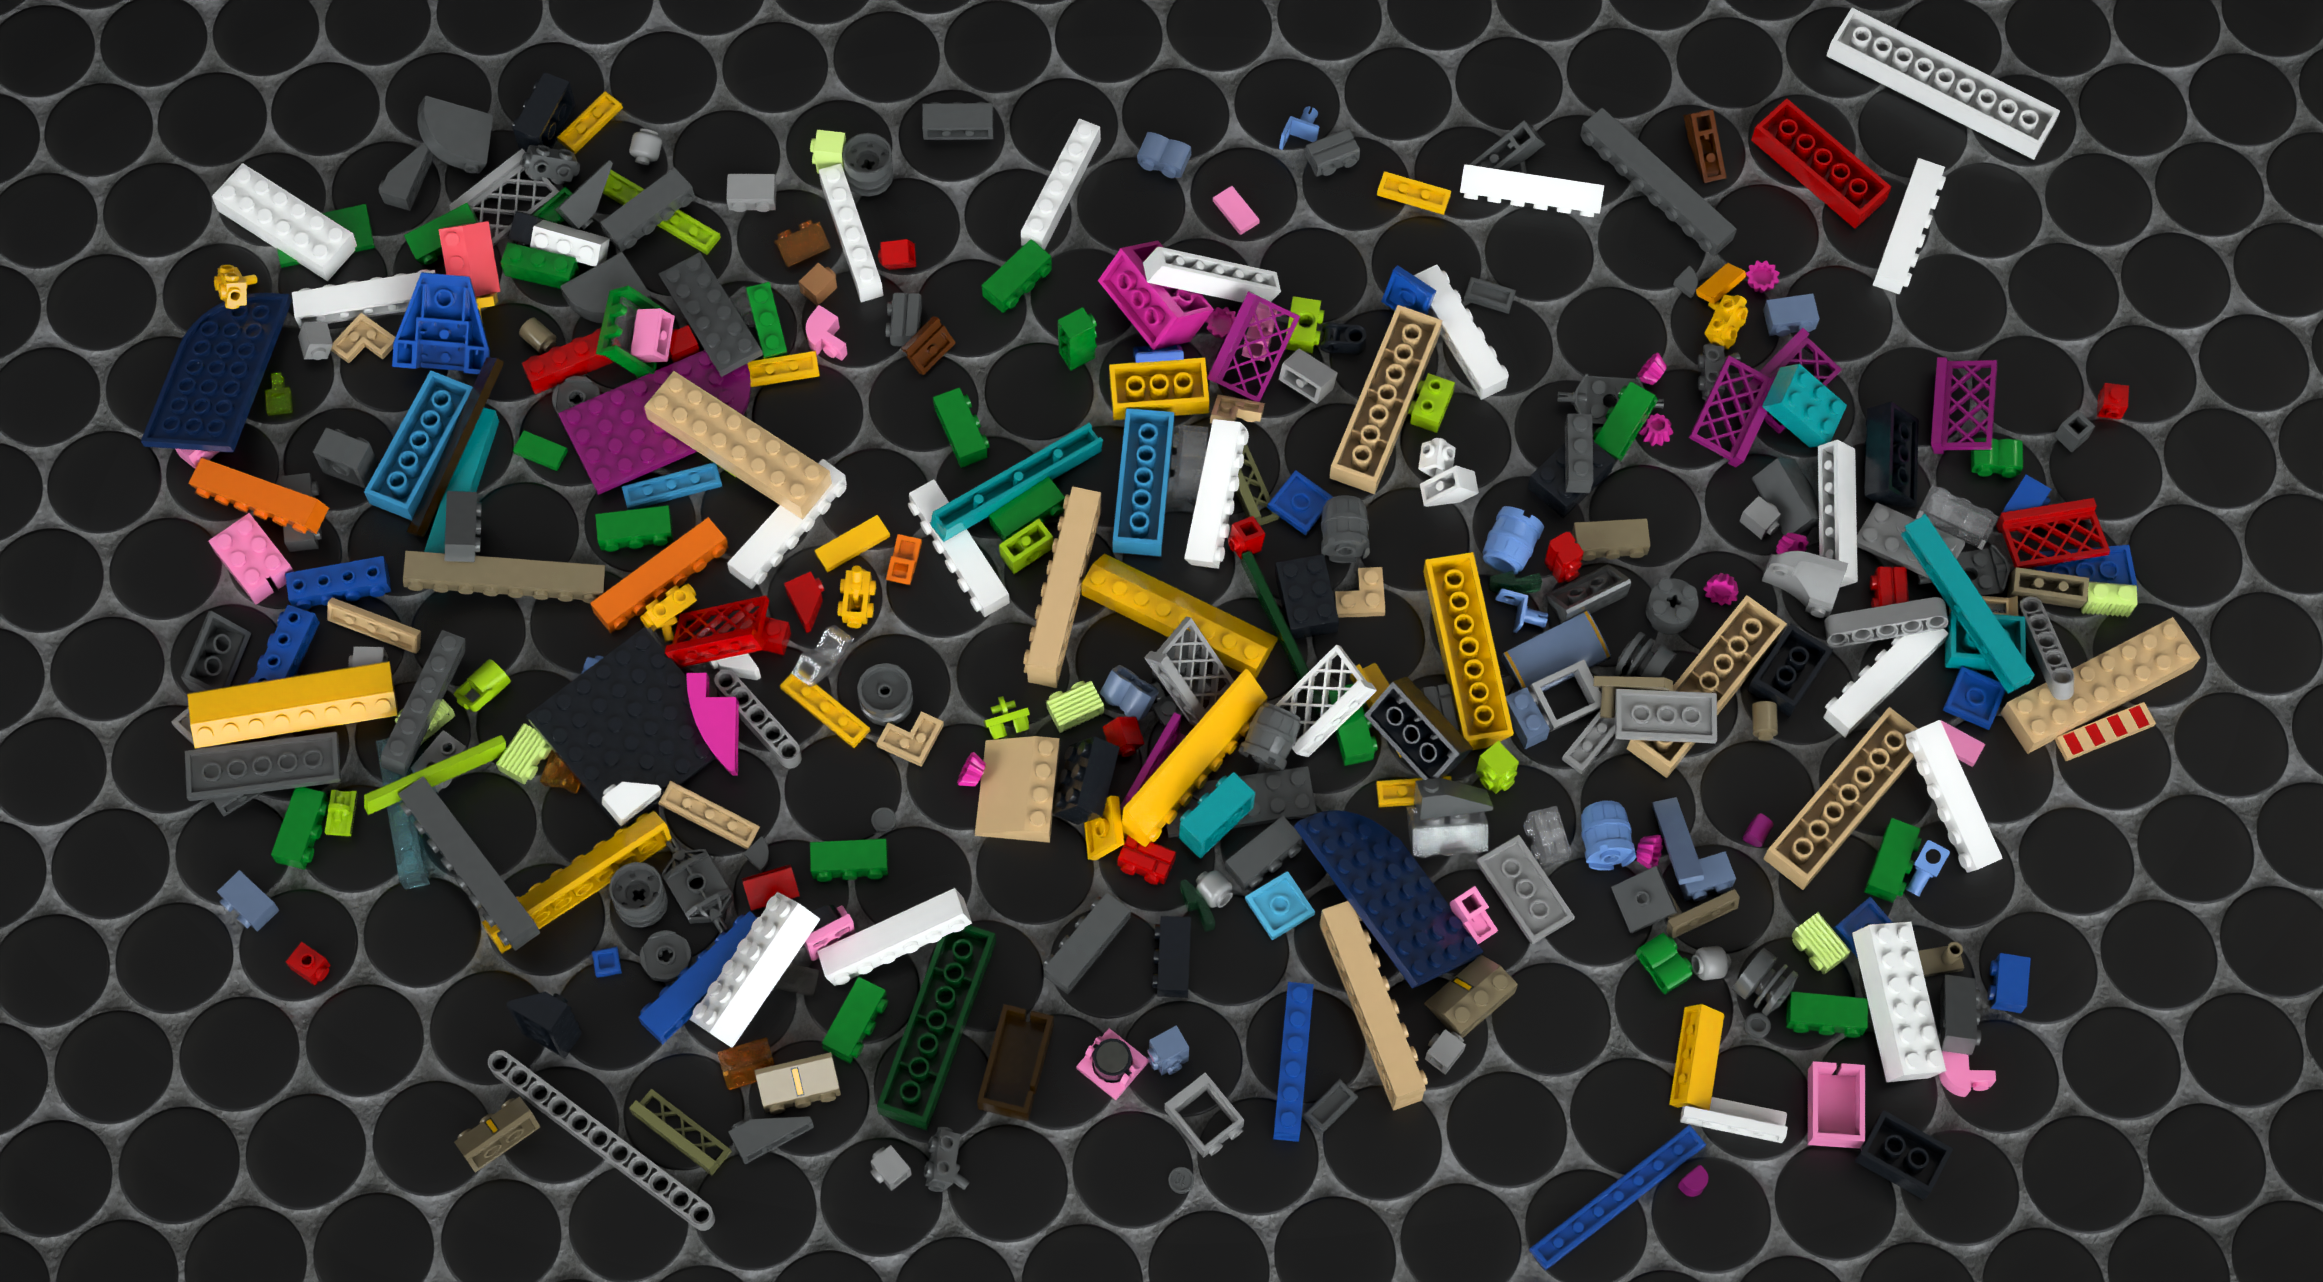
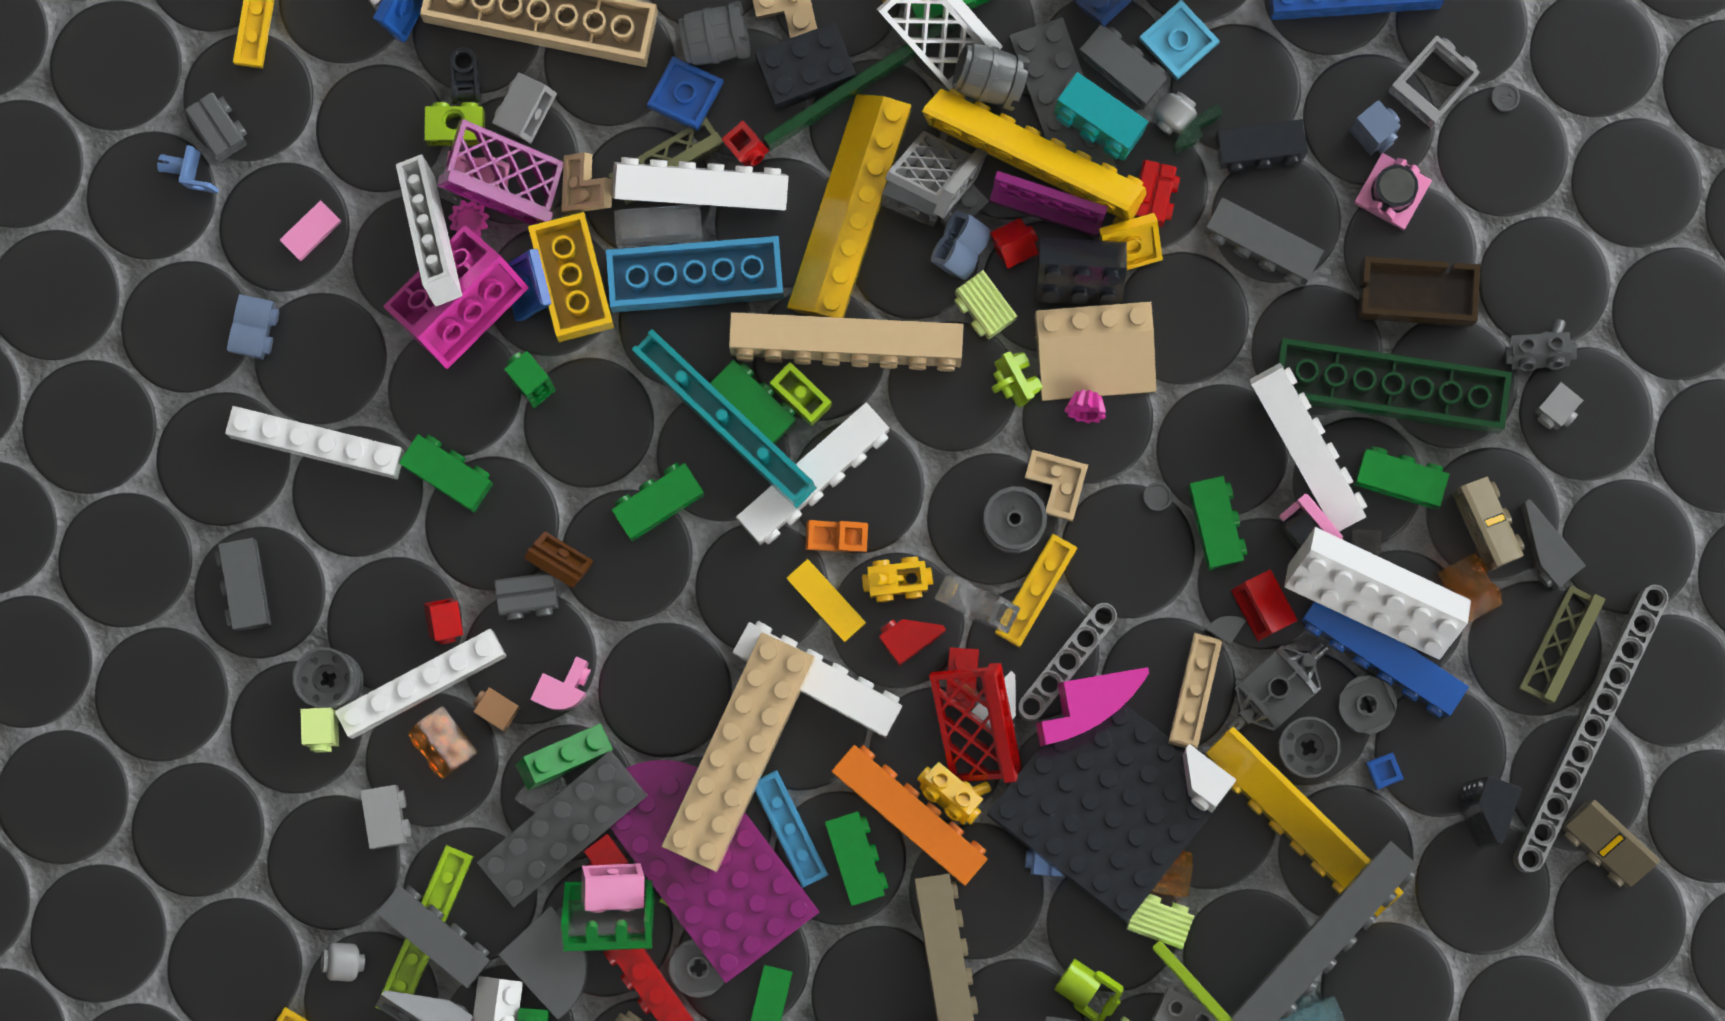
camera: 100 degrees left, 15 degrees up
(783, 369) = (615, 722): yellow plate -> none

